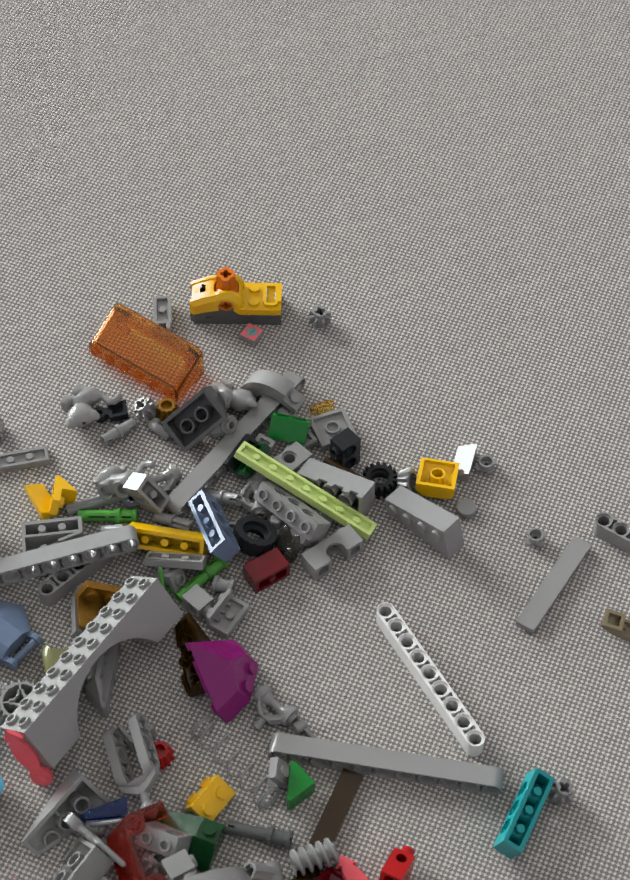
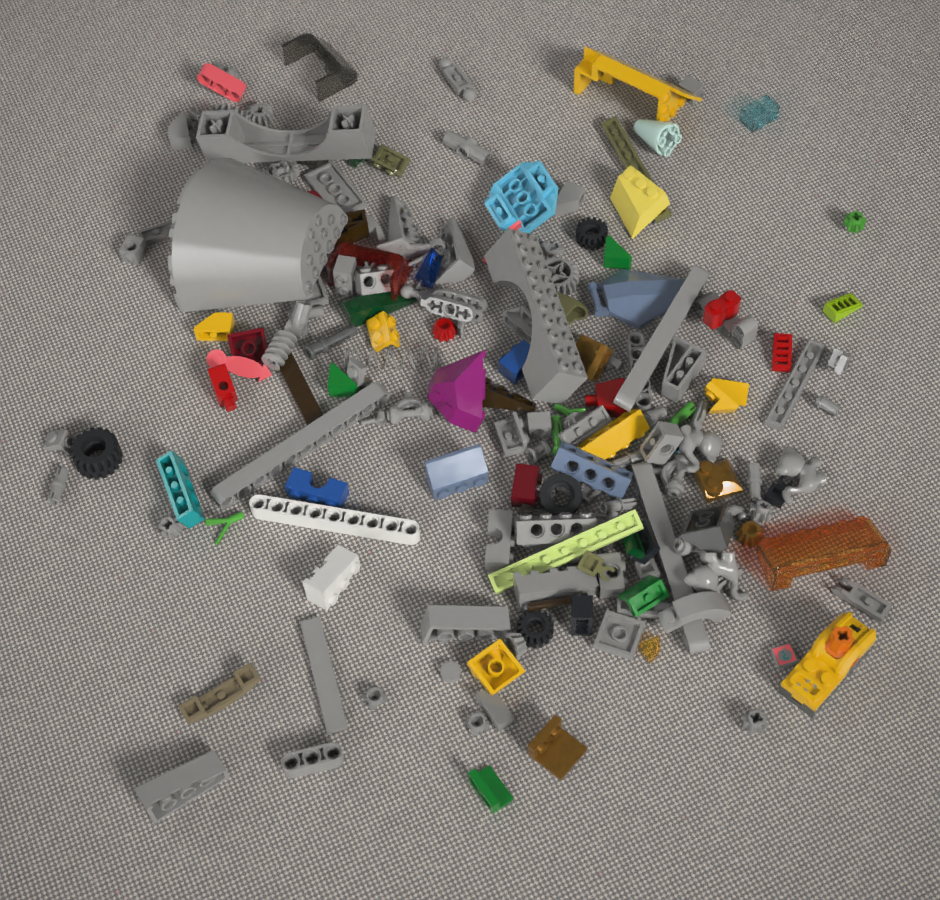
camera: 135 degrees right, 5 degrees up
(120, 568) = (605, 395): none -> red torso
(136, 452) = (717, 480): none -> pearl gold slope
(145, 664) = (512, 363): none -> blue brick
(300, 463) = (592, 565): none -> olive plate
(303, 622) = (456, 472): none -> slope
(410, 698) = (300, 487): none -> blue arch
(455, 407) = (556, 748): none -> pearl gold bracket
(480, 633) = (331, 577): none -> white wedge
(503, 757) = (229, 520): none -> bright green plant
(521, 425) = (490, 788): none -> green panel

